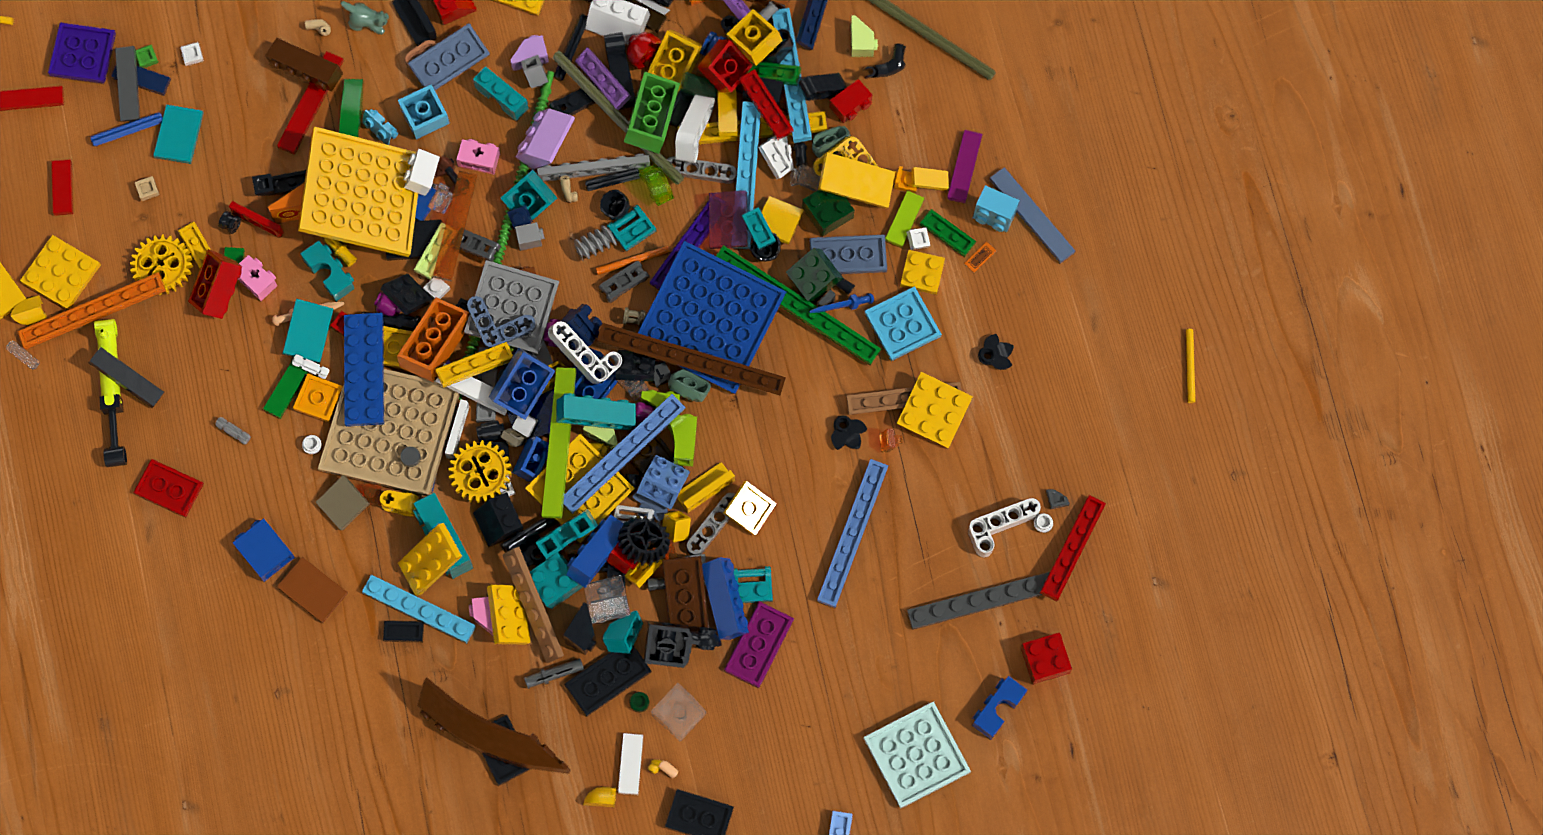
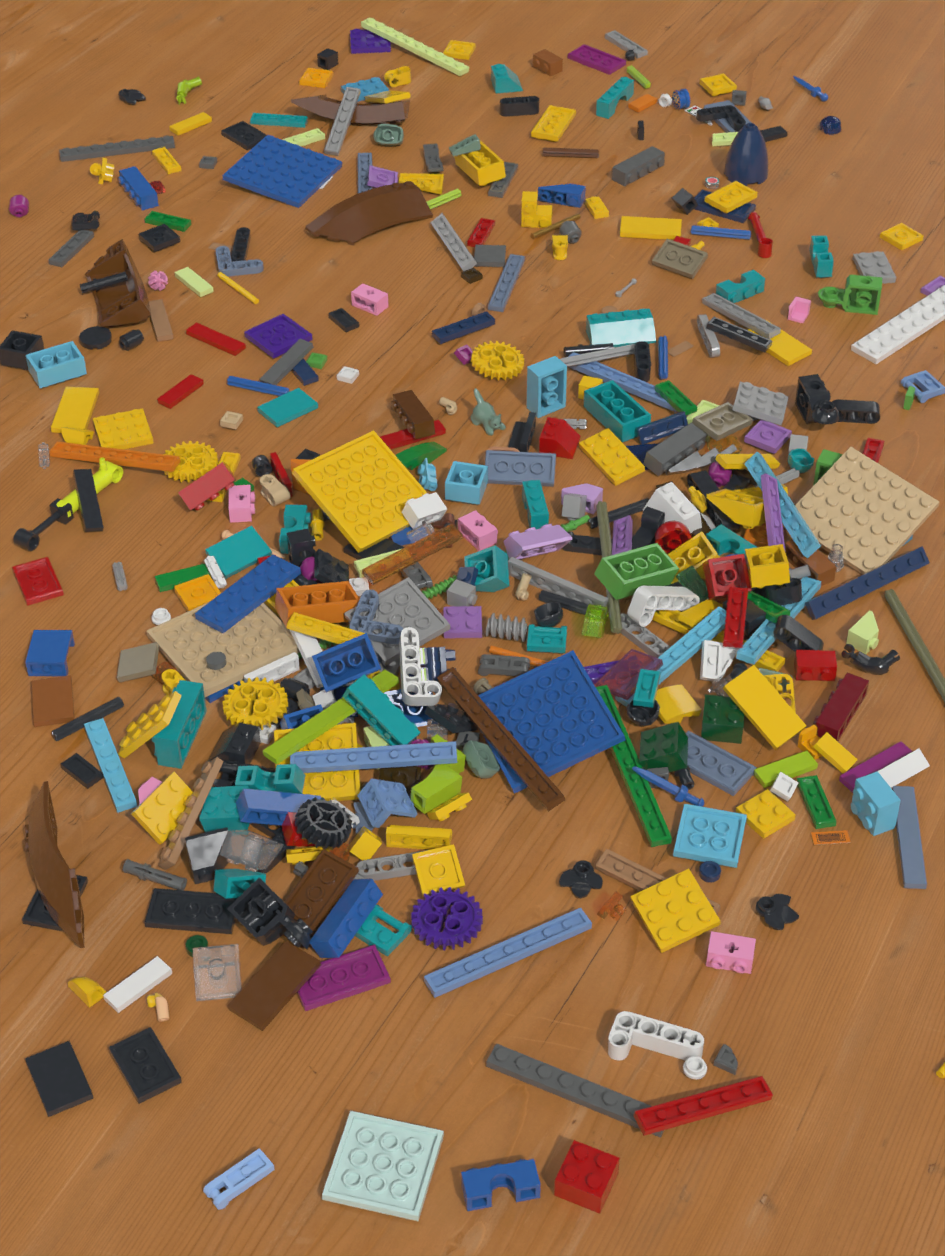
camera: 45 degrees right, 30 degrees down
(271, 242) = (273, 490): none -> tan piece
(358, 583) = (95, 714): none -> black axle
(362, 292) = (300, 546): none -> black brick
(551, 259) = (463, 621): none -> medium lavender plate
(680, 16) = (726, 541): none -> teal arch
(704, 445) = (455, 803): none -> yellow plate
(725, 689) = (274, 985): none -> reddish brown tile
(772, 546) = (460, 924): none -> dark purple gear
(901, 130) = (841, 706): none -> dark red brick
(925, 354) = (710, 871): none -> dark blue tile
(984, 159) = (904, 768): none -> white tile
(1001, 406) = (730, 952): none -> bright pink brick

